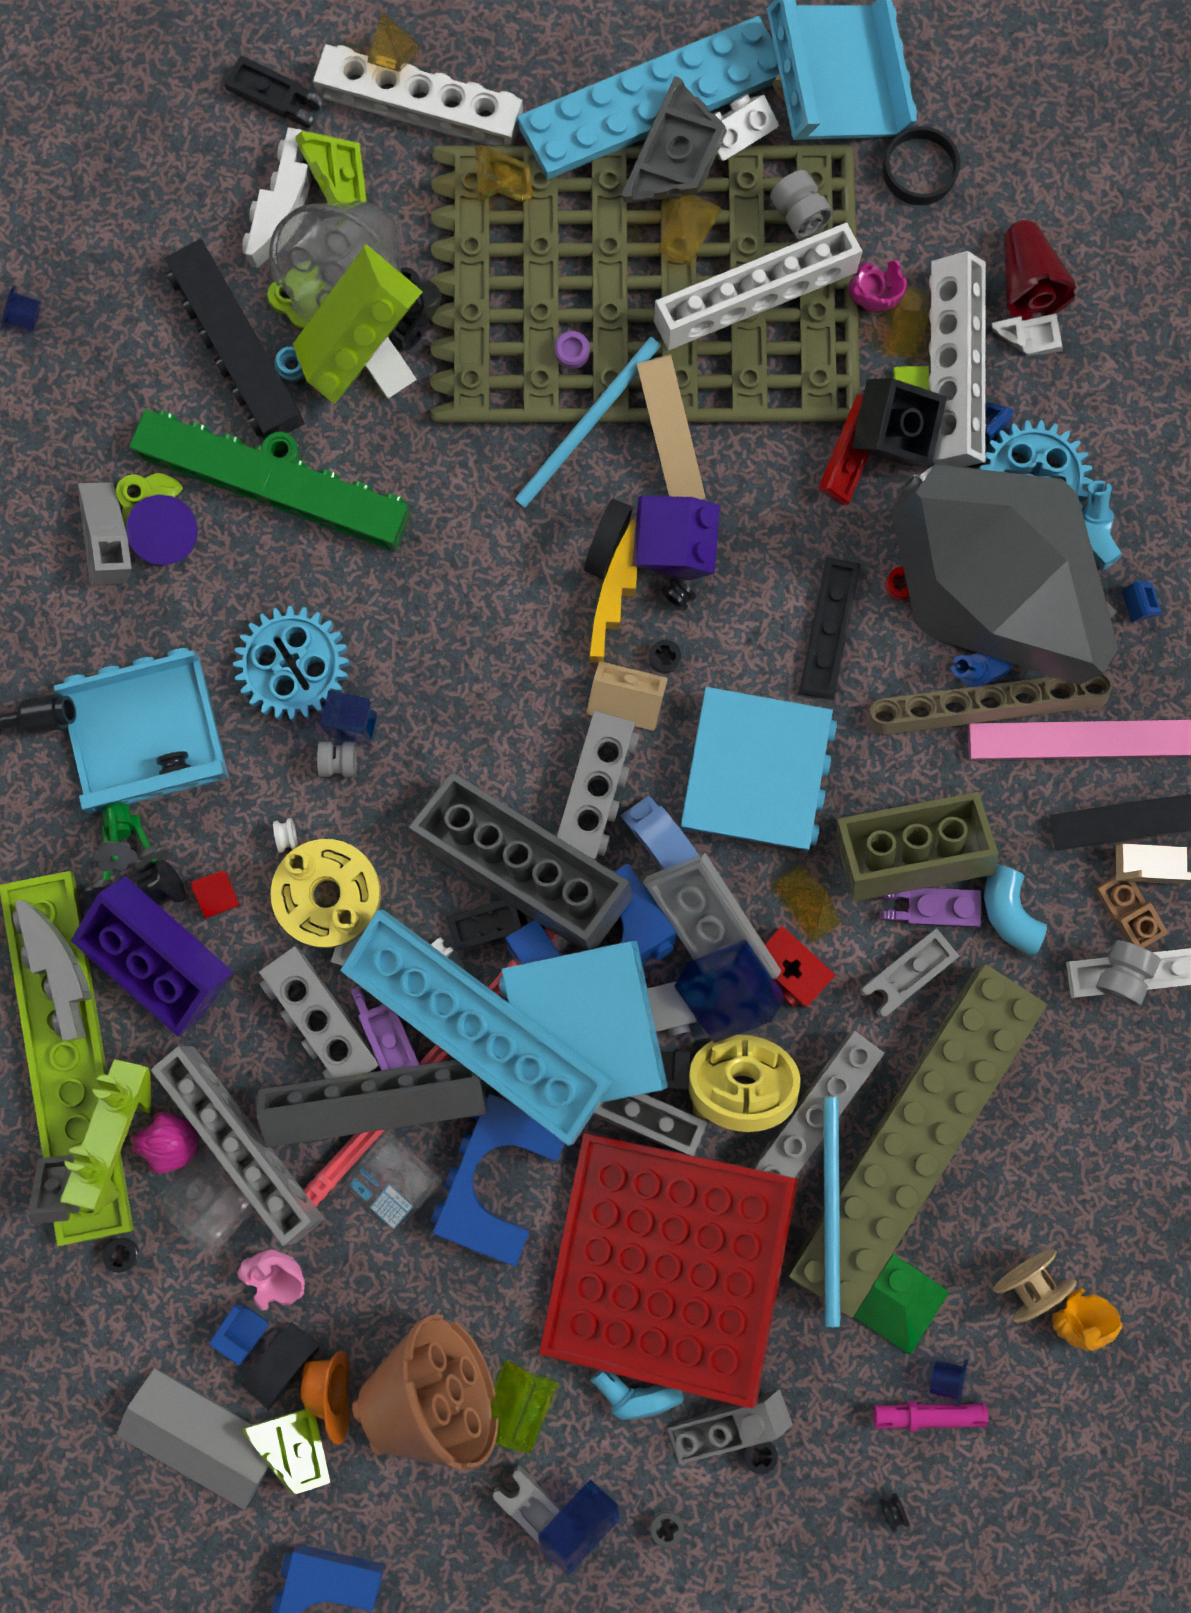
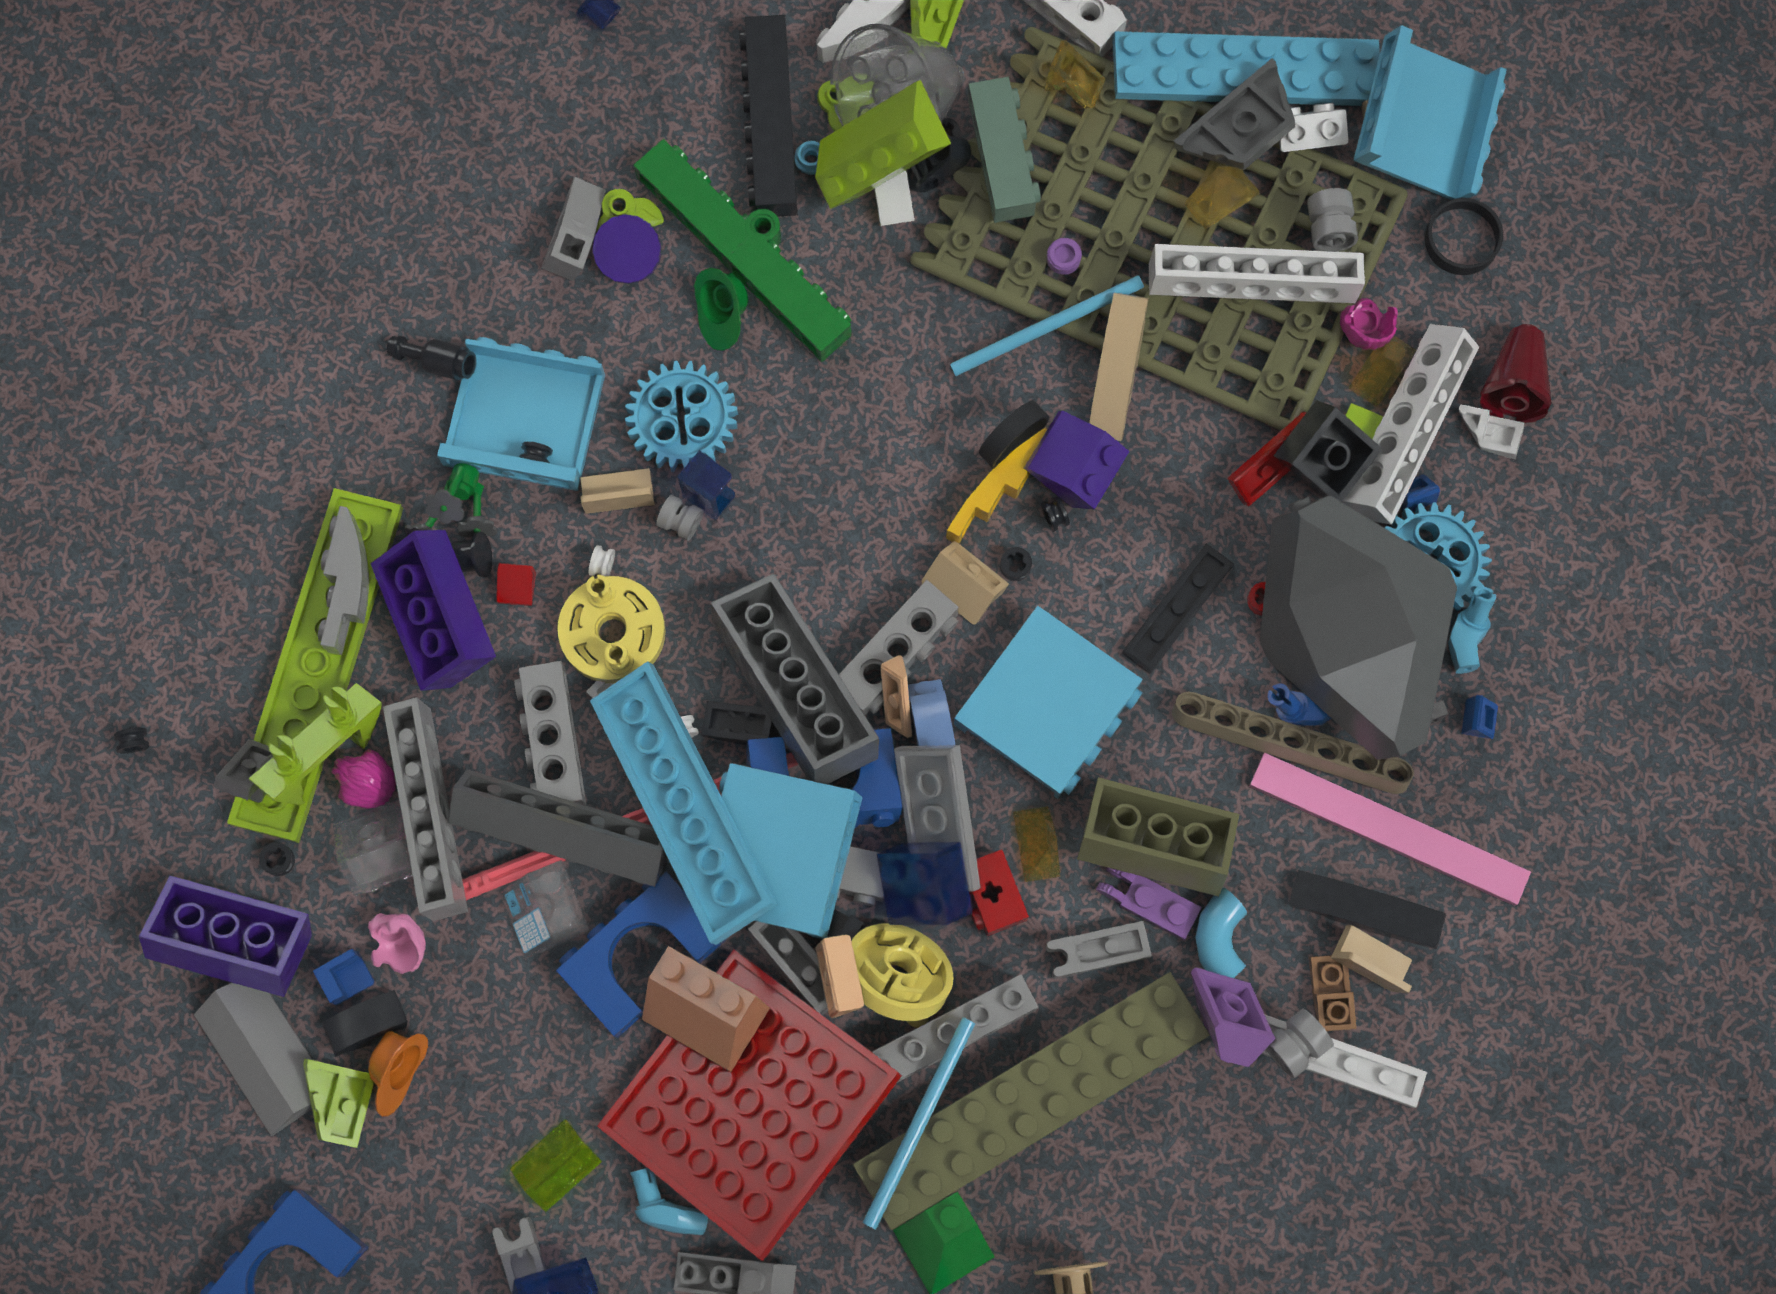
camera: 30 degrees right, 5 degrees down
(110, 1352) = (226, 936): none -> dark purple brick
(266, 761) = (617, 491): none -> tan panel
(277, 545) = (720, 303): none -> green piece
(385, 1034) = (602, 776): medium lavender hinge -> none
(431, 1398) = (482, 1112): nougat cone -> none
(467, 274) = (1002, 149): none -> sand green brick
(583, 1204) = (701, 1008): none -> nougat slope
(619, 831) = (896, 695): none -> light nougat slope
(697, 1114) = (839, 975): none -> light nougat slope
(1060, 978) = (1232, 1017): none -> medium lavender slope

